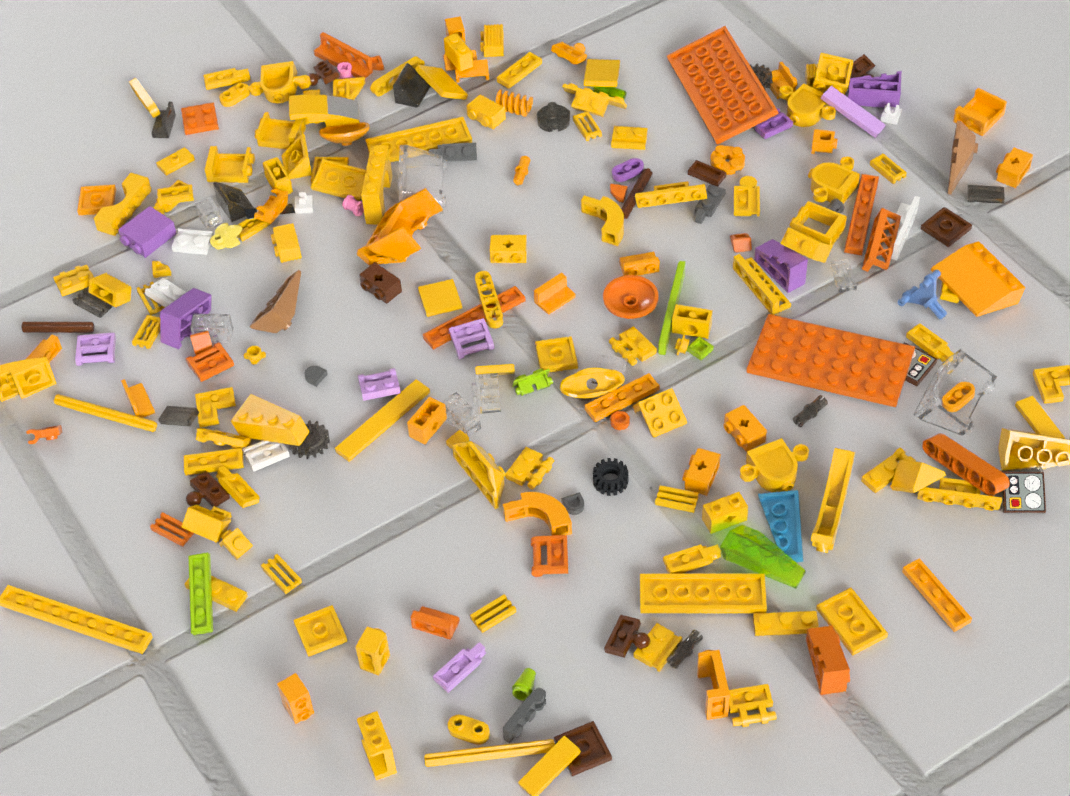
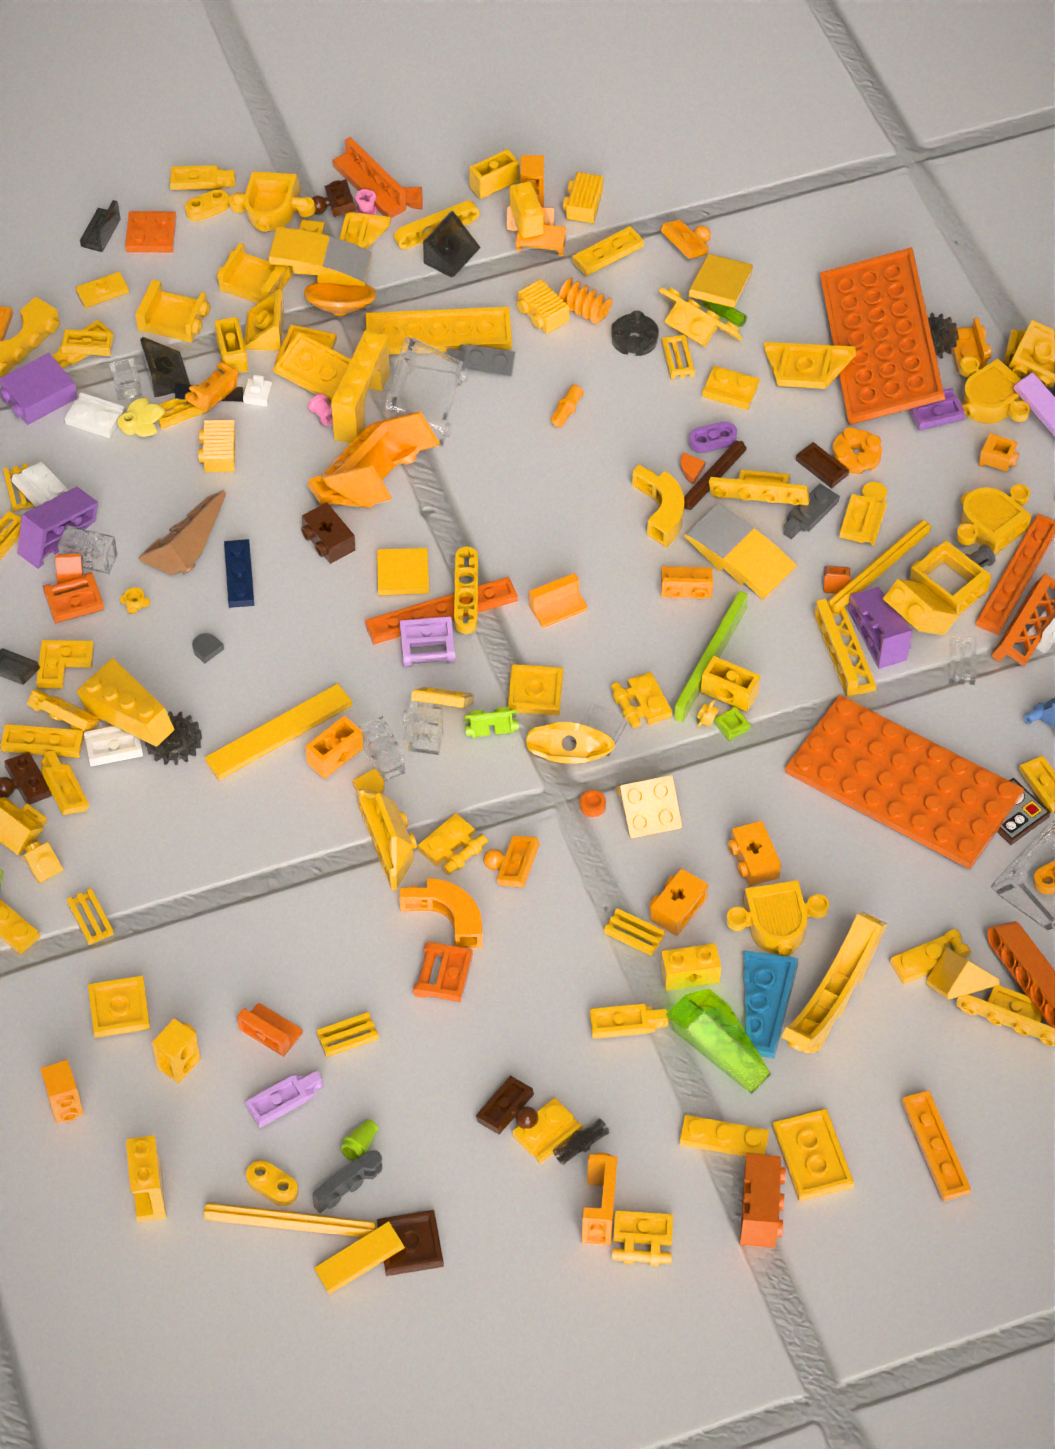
camera: 10 degrees right, 5 degrees up
(144, 97) = (82, 185): yellow beam -> none
(160, 269) = (42, 447): yellow tile -> none
(324, 322) = (239, 573): none -> dark blue plate
(379, 384) = (286, 686): lavender plate -> none
(427, 37) = (494, 173): none -> yellow brick
(441, 82) = (493, 248): yellow tile -> none
(508, 249) = (514, 520): yellow brick -> none
(574, 503) = (496, 907): dark grey tile -> none
(579, 470) = (516, 863): none -> light orange plate
(610, 467) = (555, 894): black tyre -> none
(622, 397) = (604, 771): light orange plate -> none
(630, 296) = (657, 619): orange dish -> none
(670, 236) = (740, 550): none -> yellow slope
(676, 112) = (807, 363): none -> yellow wing
(702, 593) = (627, 1071): yellow plate -> none
(768, 226) = (879, 565): none -> yellow axle
(810, 411) = (852, 848): clear smoke pin -> none

